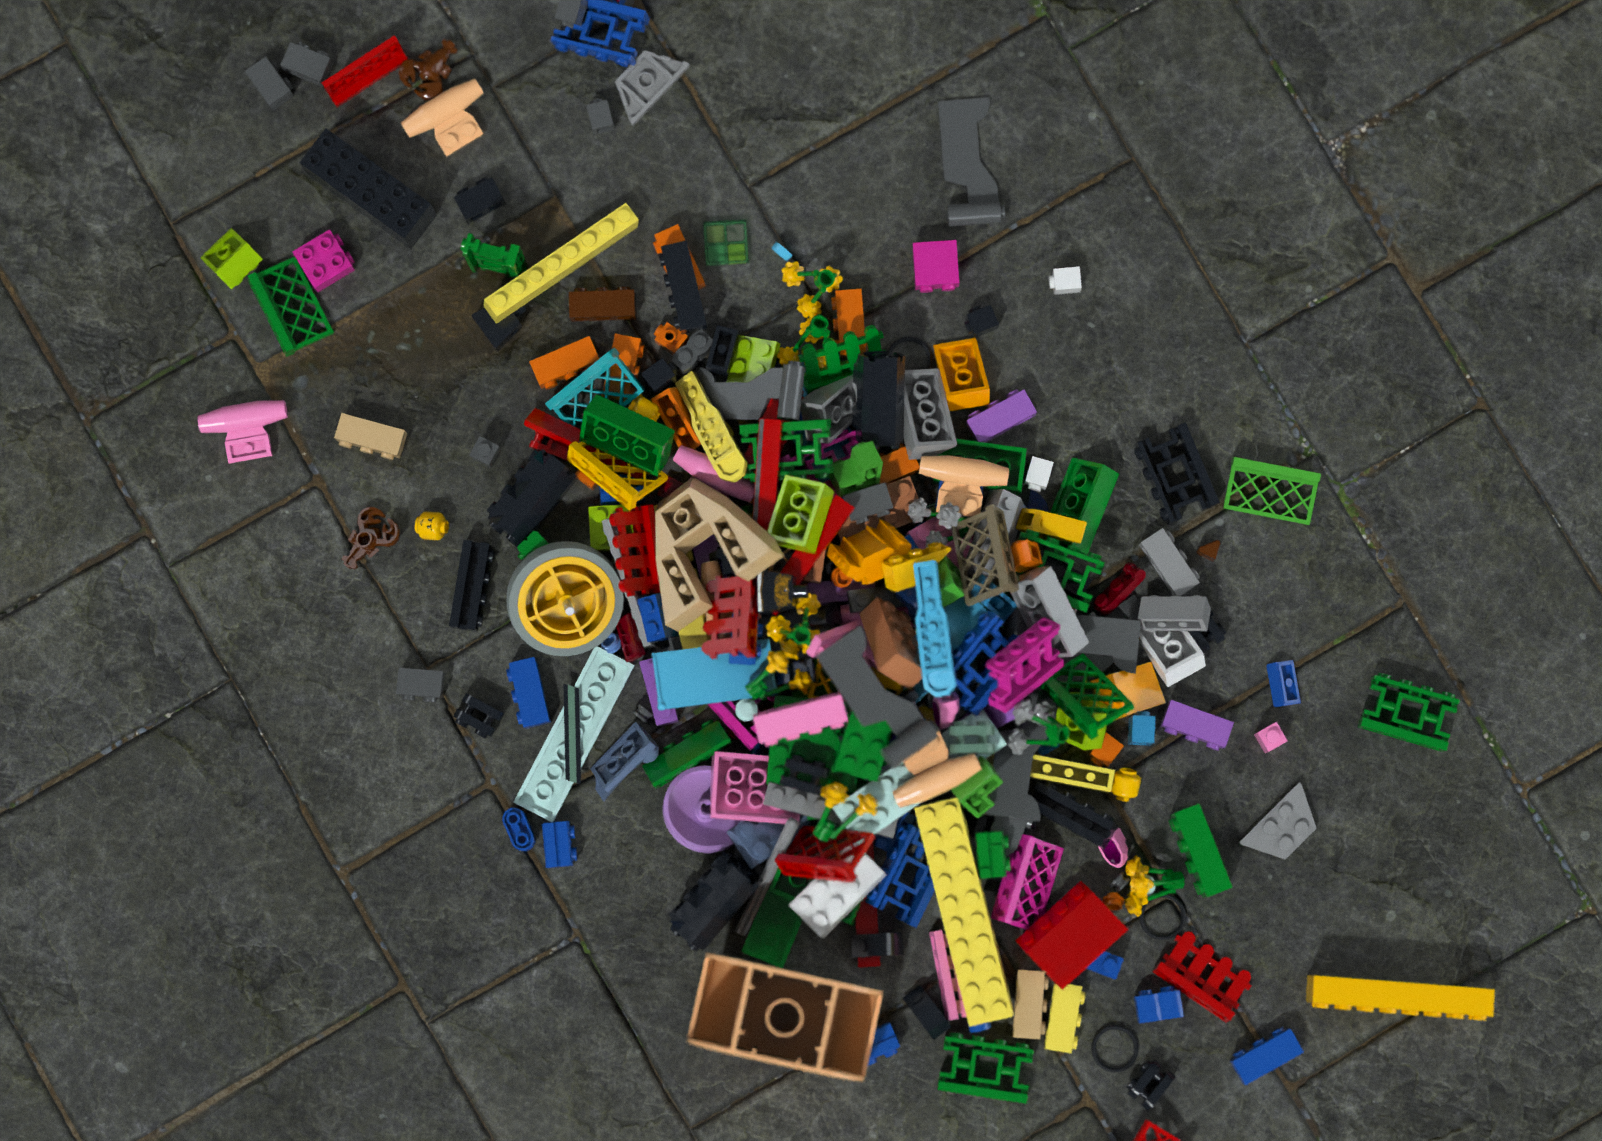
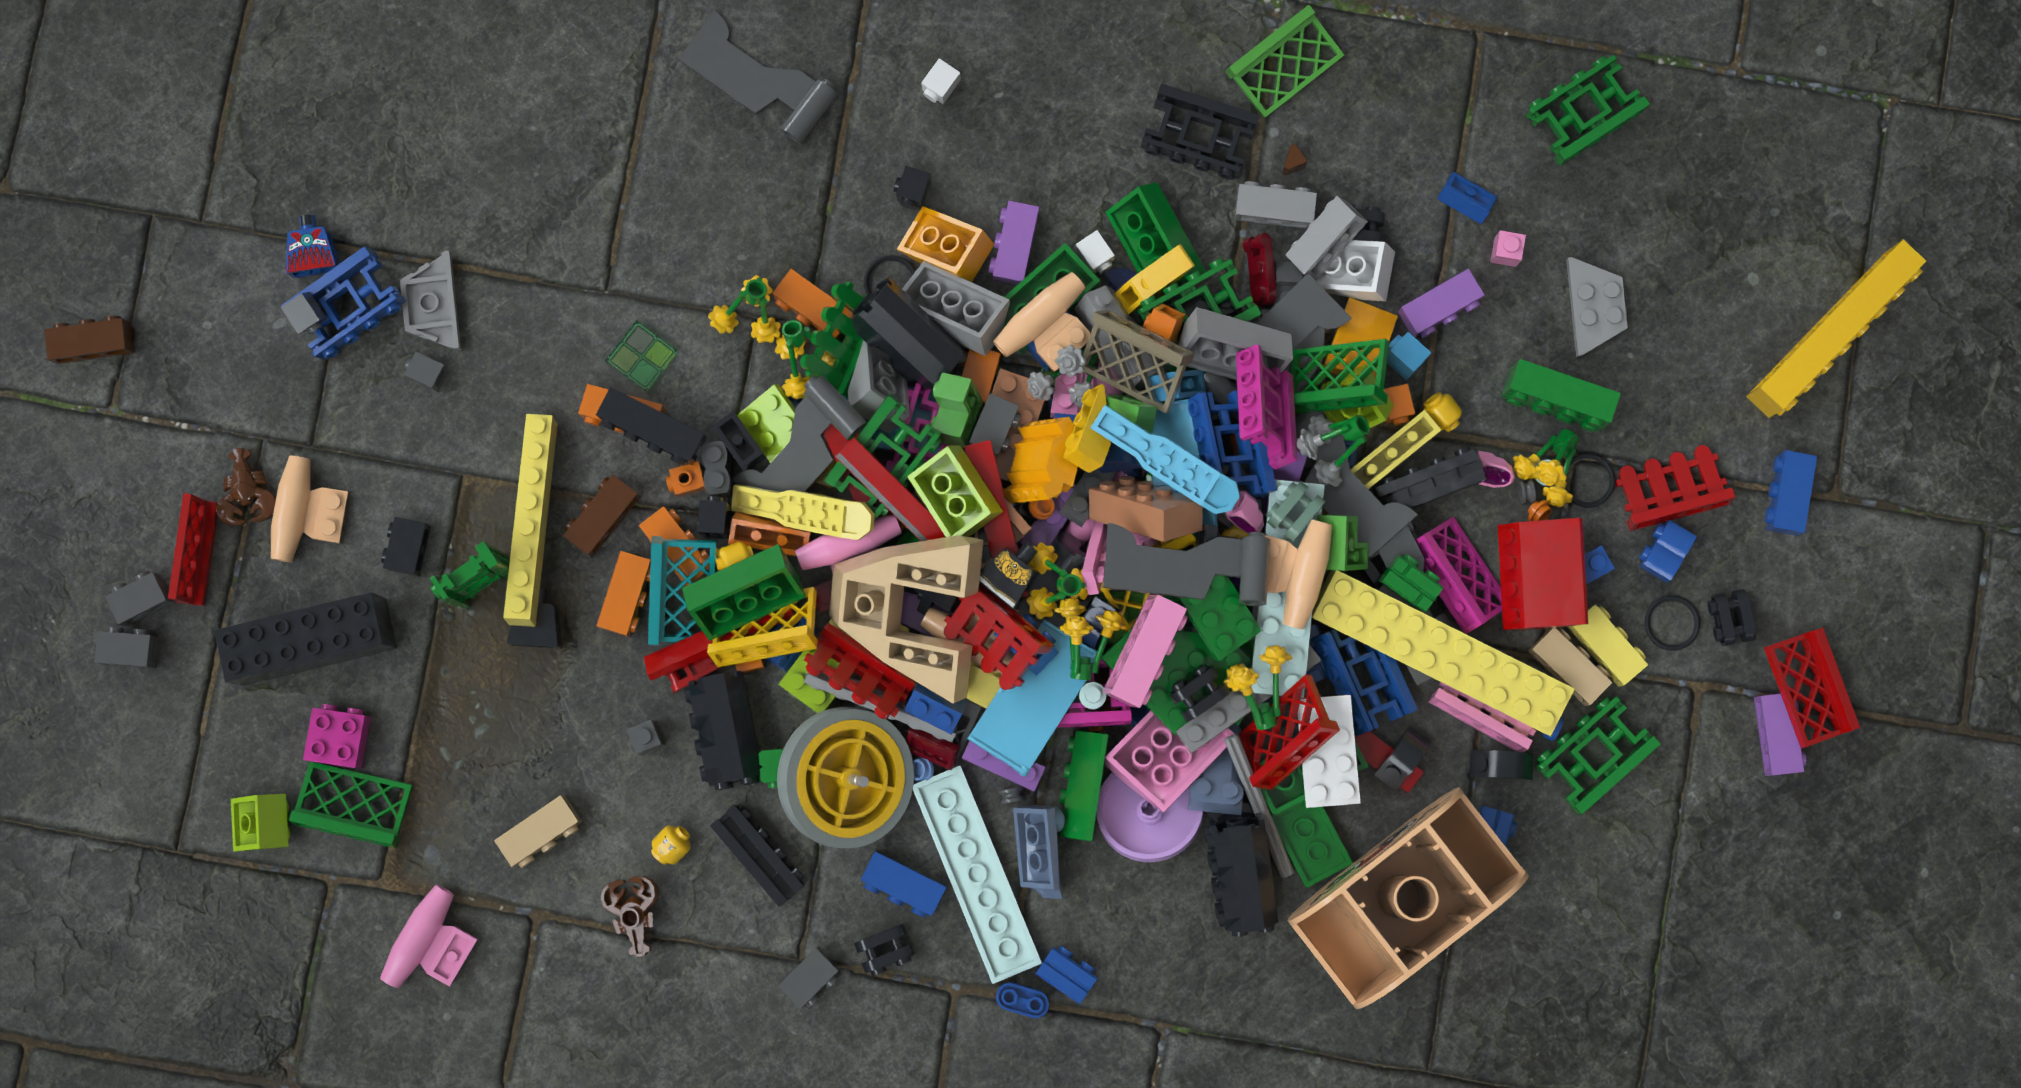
camera: 50 degrees left, 0 degrees up
(572, 734) = (975, 876): sticker -> none
(781, 251) = (693, 312): medium azure tile -> none
(935, 265) = (827, 185): dark pink brick -> none

